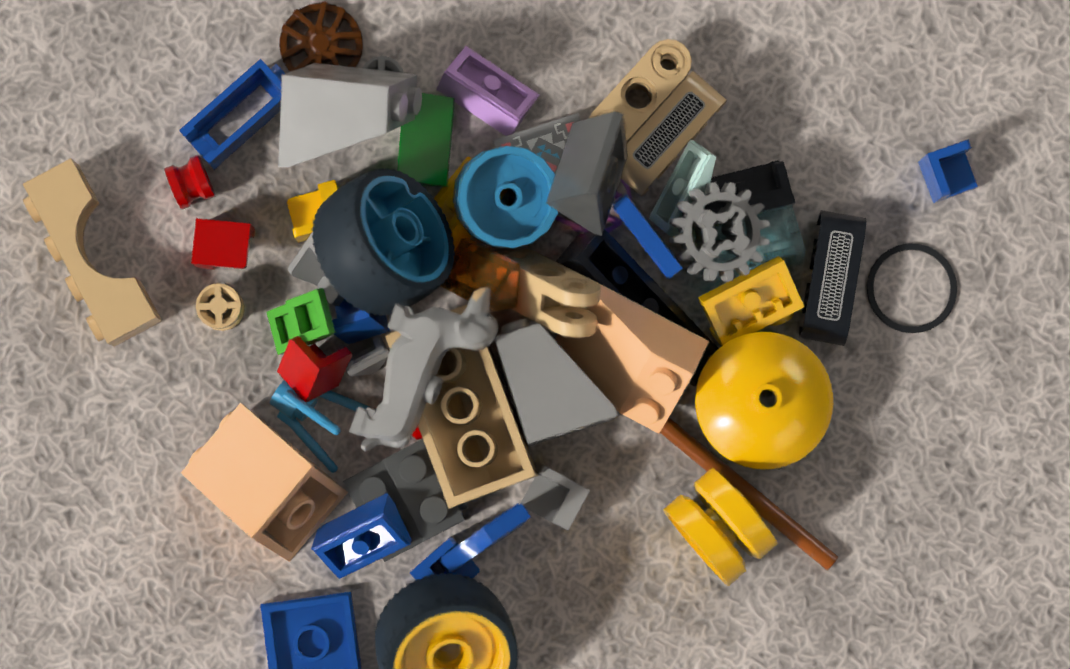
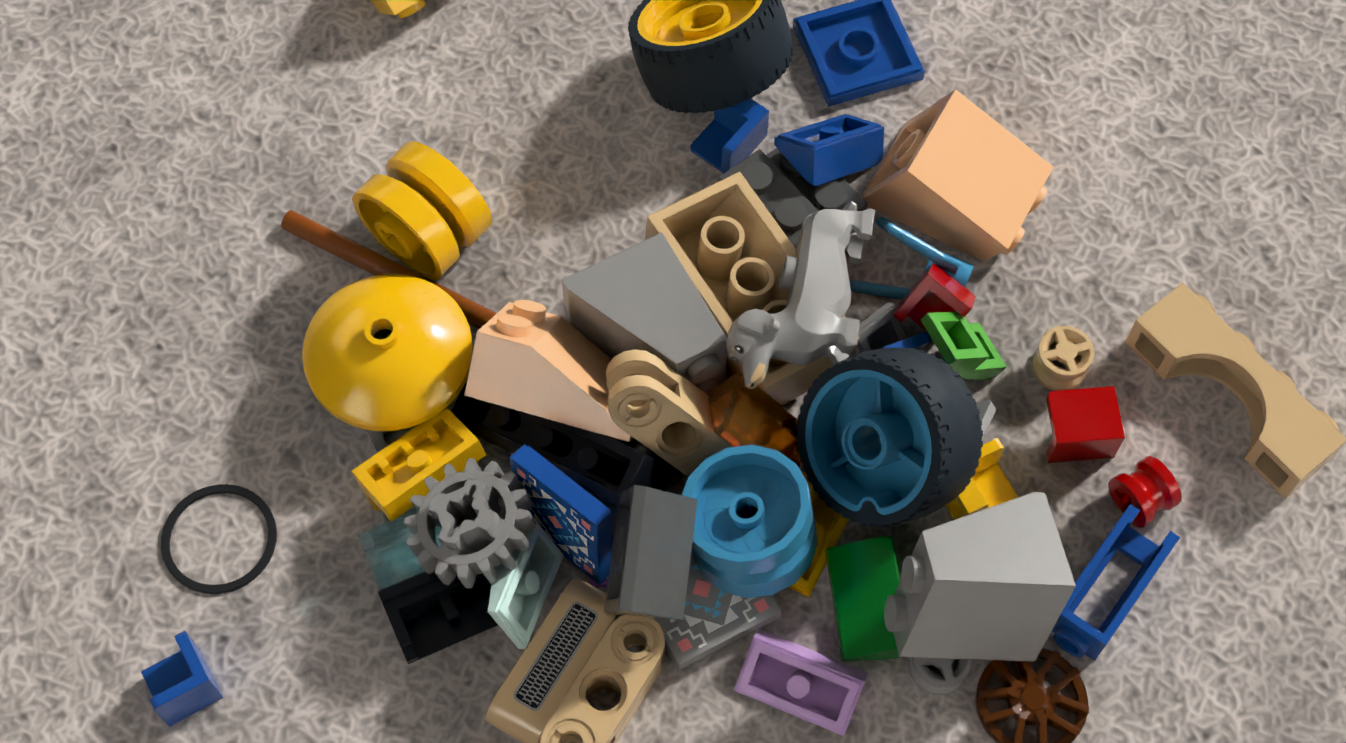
camera: 175 degrees right, 20 degrees down
(485, 538) = (686, 159): blue tile -> none
(555, 497) = (607, 226): light grey panel -> none
(834, 278) = (316, 527): black beam -> none

